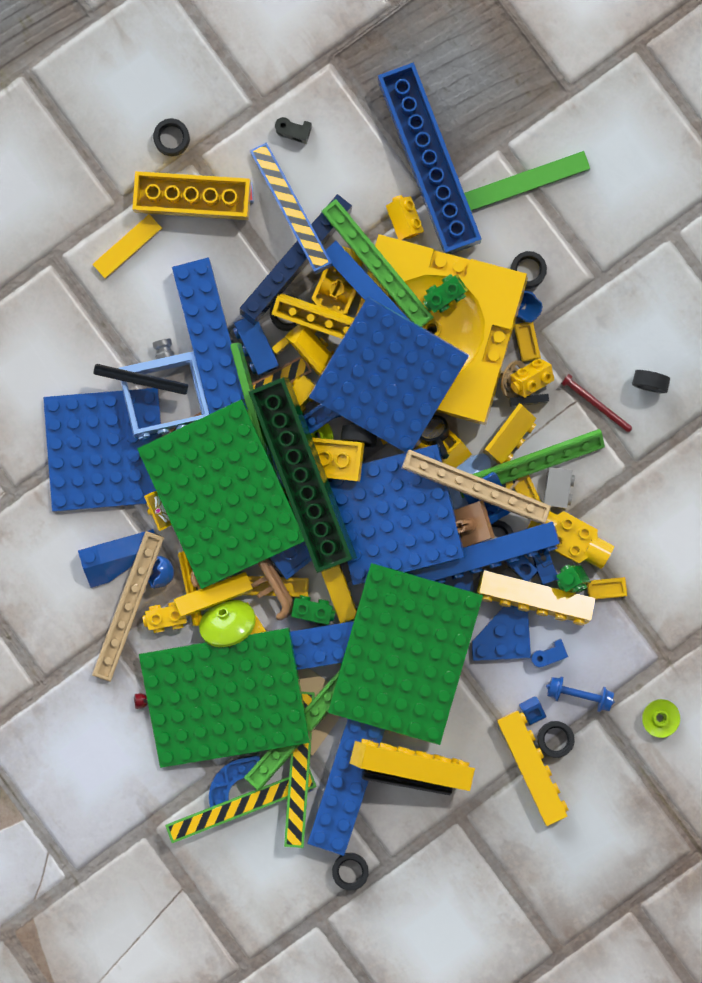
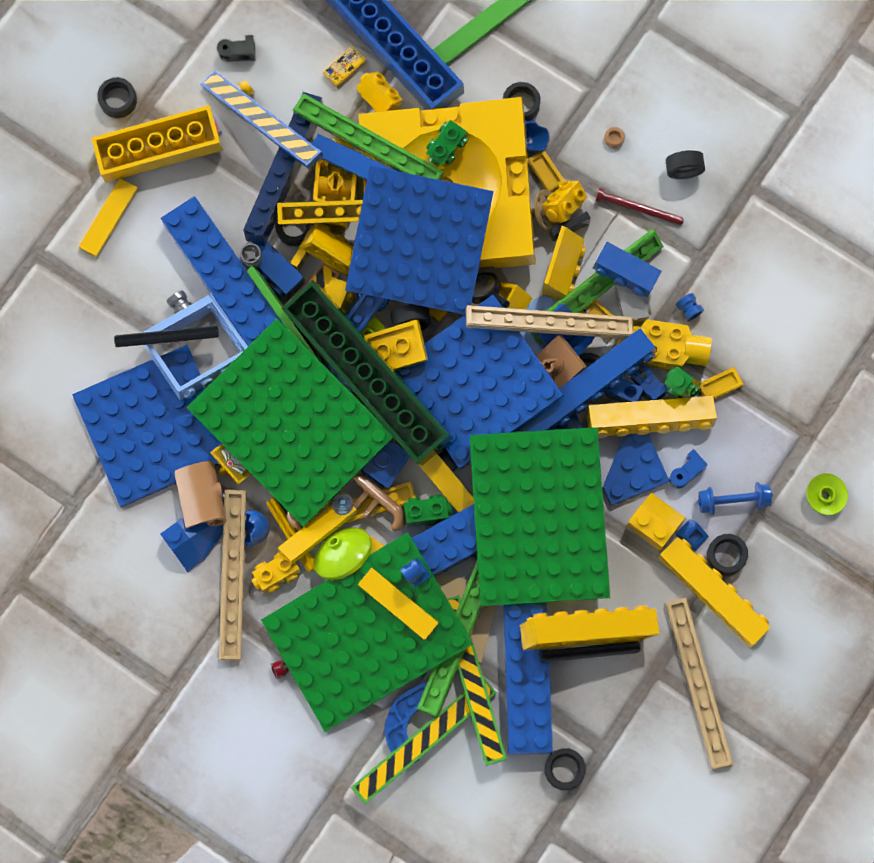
camera: 15 degrees left, 10 degrees down
(123, 528) = (200, 494): none -> medium nougat panel
(239, 331) = (249, 252): none -> flat silver wheel
(242, 580) = (342, 503): none -> clear tile
(258, 686) = (398, 603): none -> yellow tile
(281, 667) = (415, 572): none -> blue leg
(288, 170) = (246, 88): none -> yellow plate
(383, 179) = (344, 66): none -> tile
(490, 839) = (699, 684): none -> tan tile
(506, 688) = (655, 521): none -> yellow slope
(561, 462) = (626, 270): none -> blue brick
(599, 331) = (614, 137): none -> medium nougat tile
(606, 511) = (689, 307): none -> blue wheel

